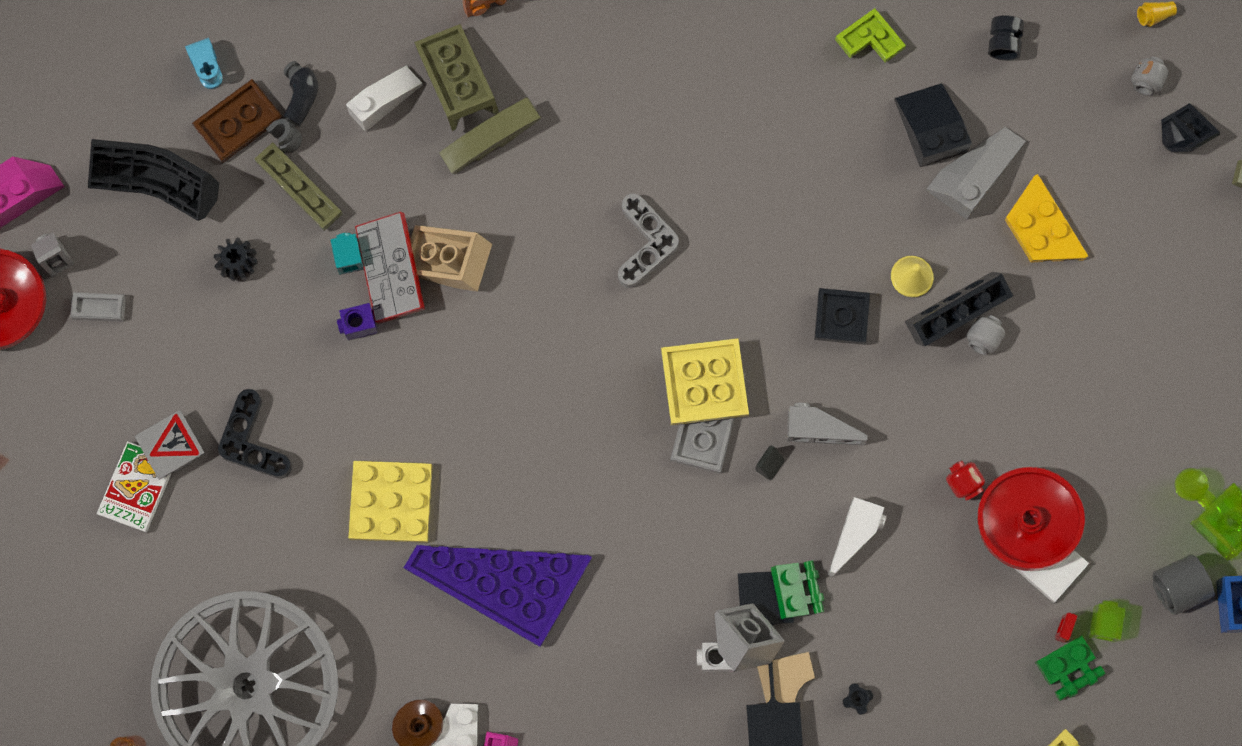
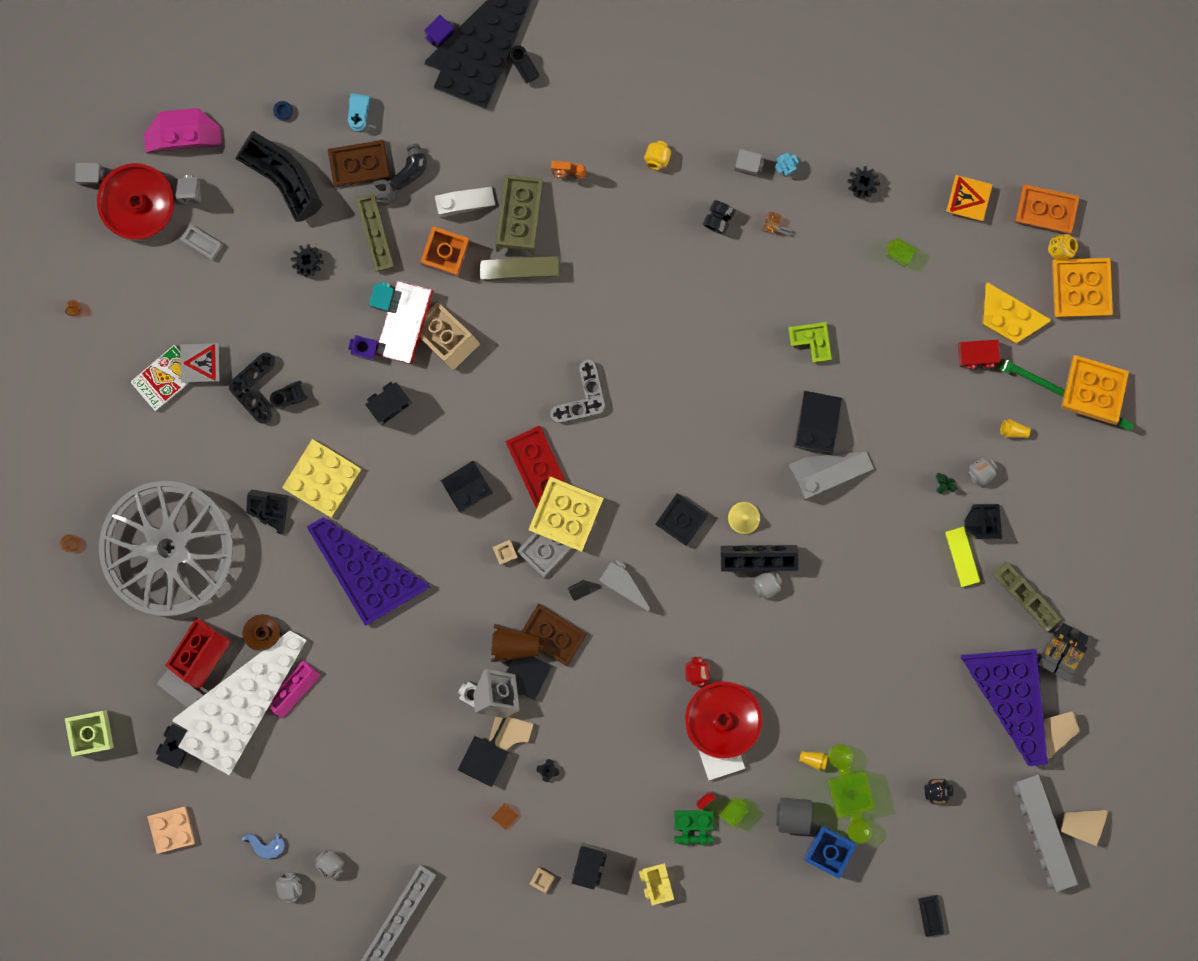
camera: 25 degrees right, 10 degrees up
(116, 109) = (282, 110): none -> dark blue tile
(298, 424) = (289, 395): none -> black piece
(345, 572) = (268, 508): none -> black slope
(393, 161) = (445, 251): none -> orange brick
(422, 366) = (388, 403): none -> black brick
(569, 416) = (466, 486): none -> black slope
(631, 345) = (534, 461): none -> red tile
(657, 467) = (505, 552): none -> tan plate
(731, 567) = (513, 644): none -> reddish brown cone
(769, 533) = (558, 635): none -> reddish brown tile
(790, 589) = (543, 680): green plate -> none
(859, 527) = (610, 664): white slope -> none
(1006, 37) = (901, 392): black wheel -> none
(1042, 227) = (849, 532): yellow wing -> none
(1116, 113) = (945, 483): none -> dark green plant
(1163, 507) = (814, 759): none -> yellow cone
(1185, 183) = (962, 556): none -> neon yellow tile

